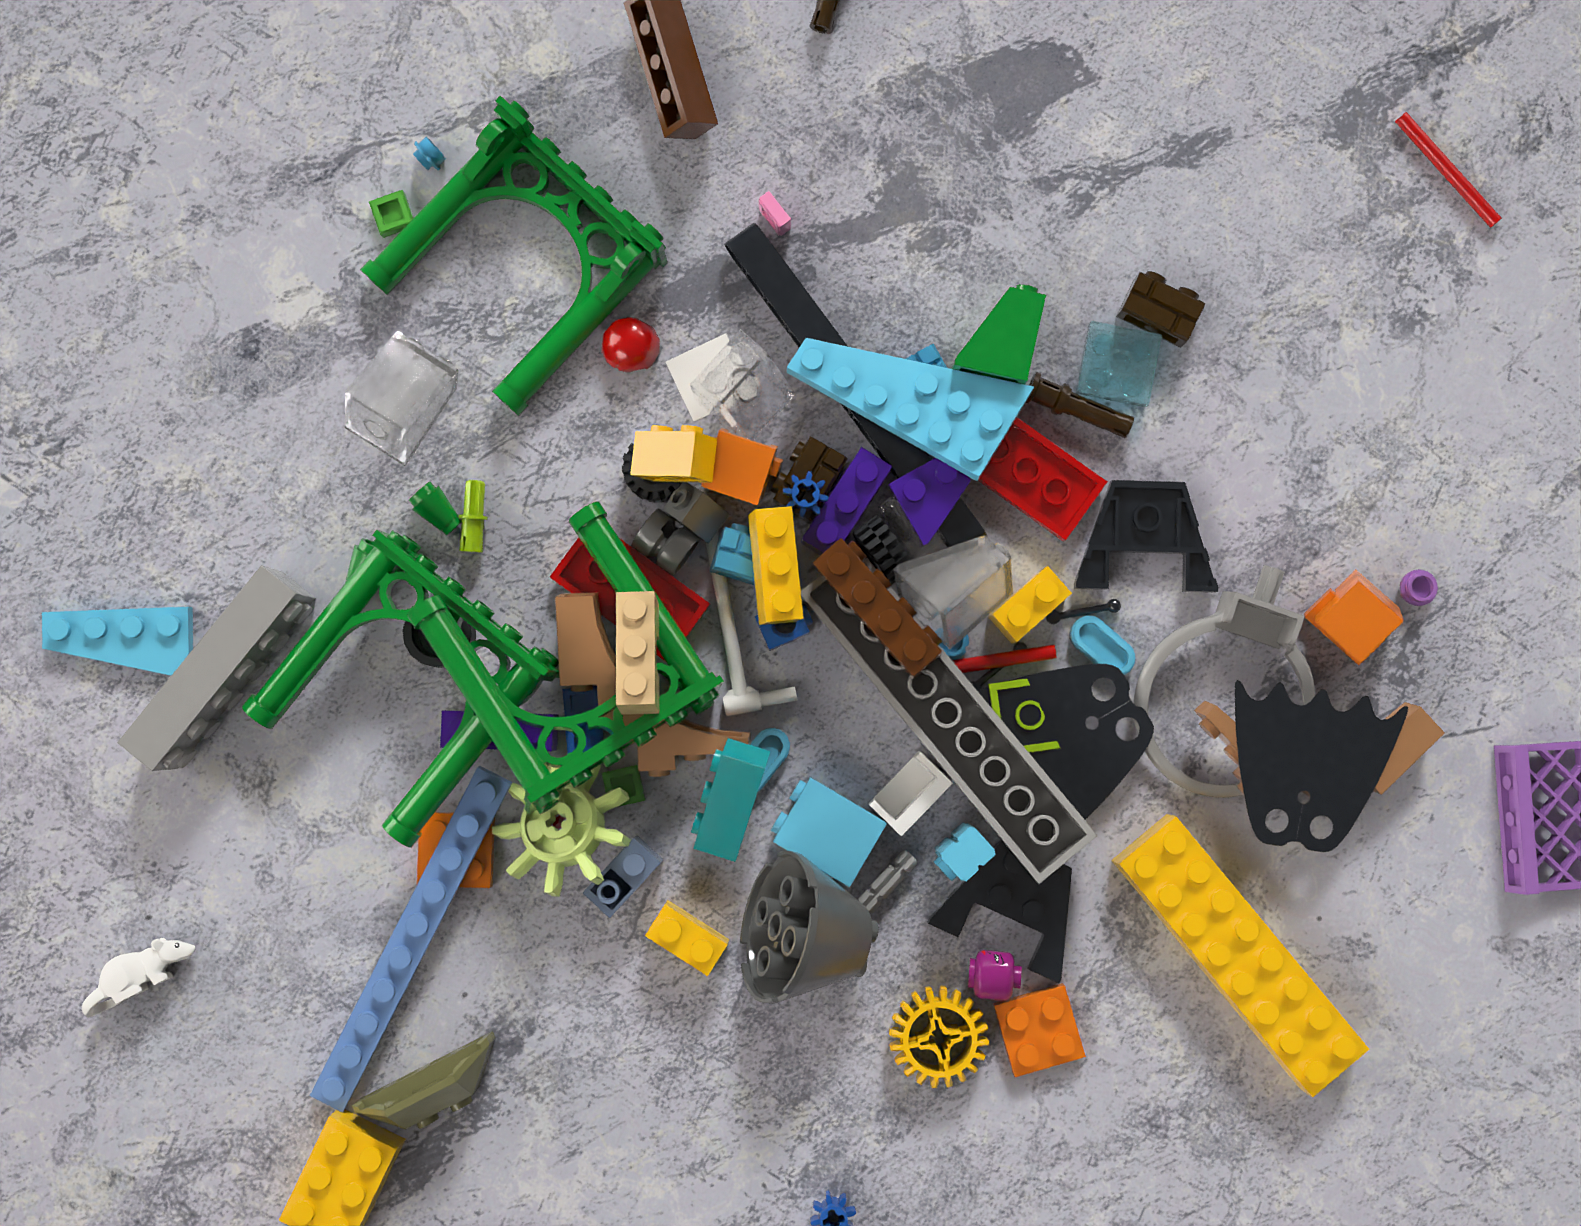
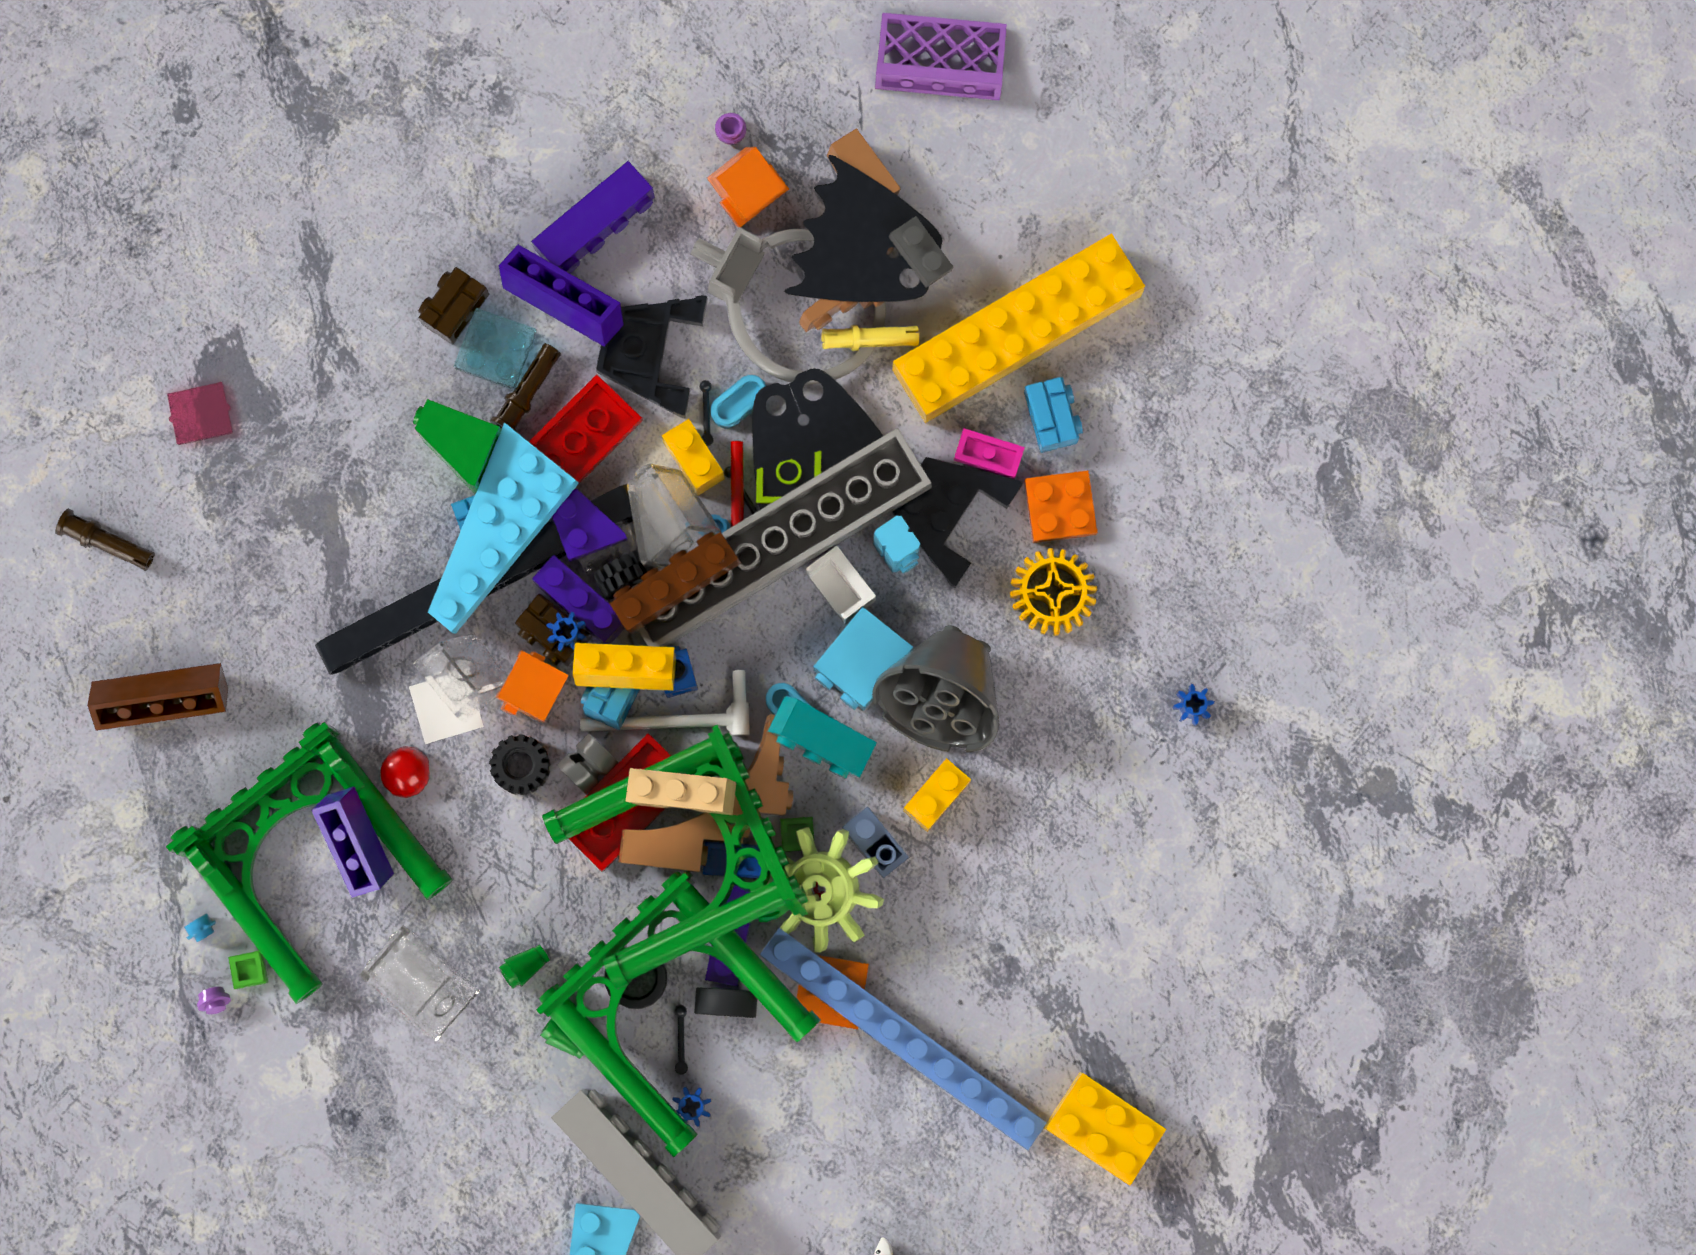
camera: 80 degrees left, 5 degrees down
(316, 720) = (695, 1097): none -> blue gear
(352, 181) = (213, 1000): none -> medium lavender plate
(353, 697) = (681, 1067): none -> black hinge
(420, 735) = (725, 1002): none -> black tyre
(430, 1088) = (1035, 1038): olive wedge -> none
(472, 519) = (536, 933): lime axle -> none
(539, 299) = (352, 842): none -> dark purple brick
(674, 455) = (513, 740): yellow brick -> none
(696, 511) = (564, 732): dark grey brick -> none
(774, 214) = (310, 626): bright pink tile -> none
(888, 881) = (912, 613): light grey axle -> none
(994, 54) = (199, 413): none -> clear pink piece
(994, 975) = (1007, 536): magenta head -> none
(1086, 940) = (989, 453): none -> dark pink plate
(1144, 1007) = (1052, 414): none -> dark azure brick
(1191, 426) = (561, 295): none -> dark purple brick
(1197, 771) = (869, 337): none -> light yellow pin
(1286, 449) = (595, 218): none -> dark purple brick
(1310, 830) = (921, 251): none -> dark grey plate
(1448, 169) = (372, 44): red bar -> none

